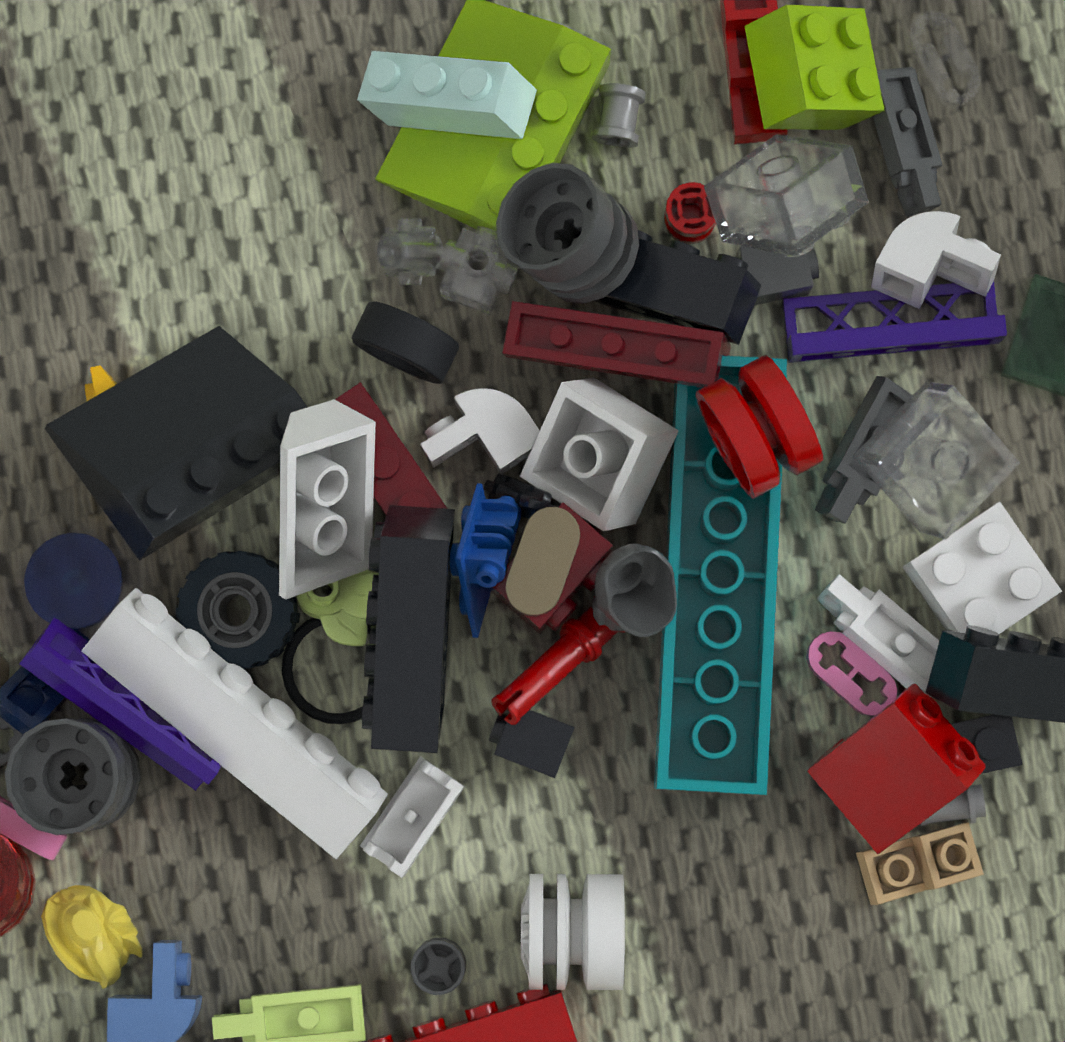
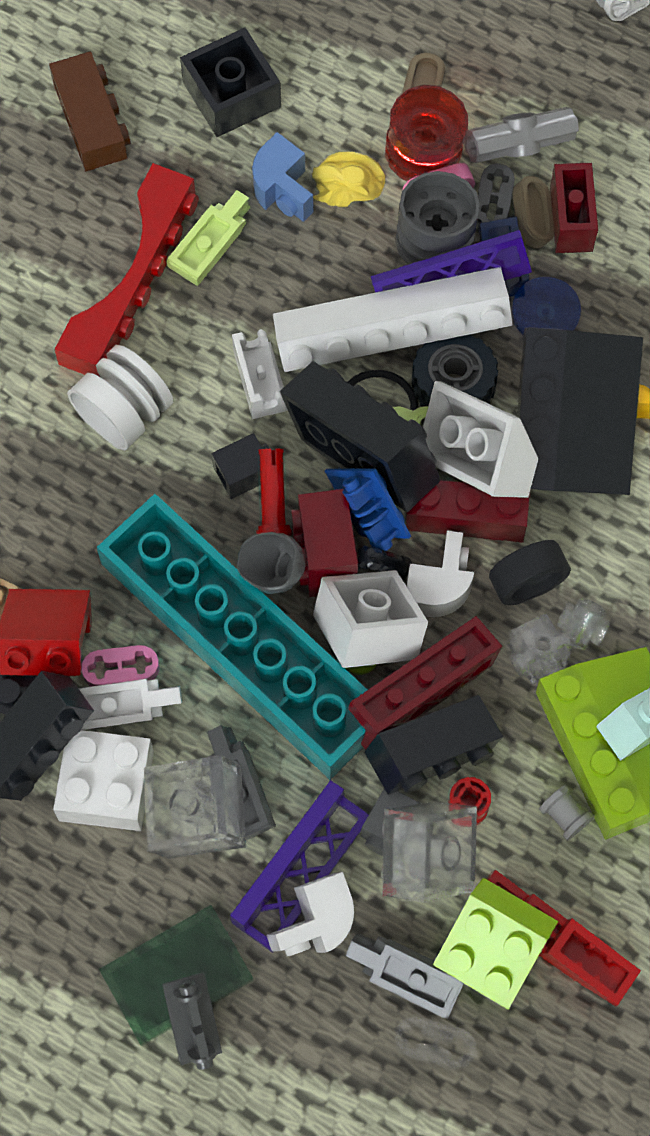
camera: 130 degrees right, 15 degrees down
(432, 970) = (168, 316): dark grey wheel -> none
(542, 561) = (333, 521): dark tan tile -> none
(567, 233) = (514, 698): dark grey wheel -> none
(759, 426) = (301, 696): red wheel -> none

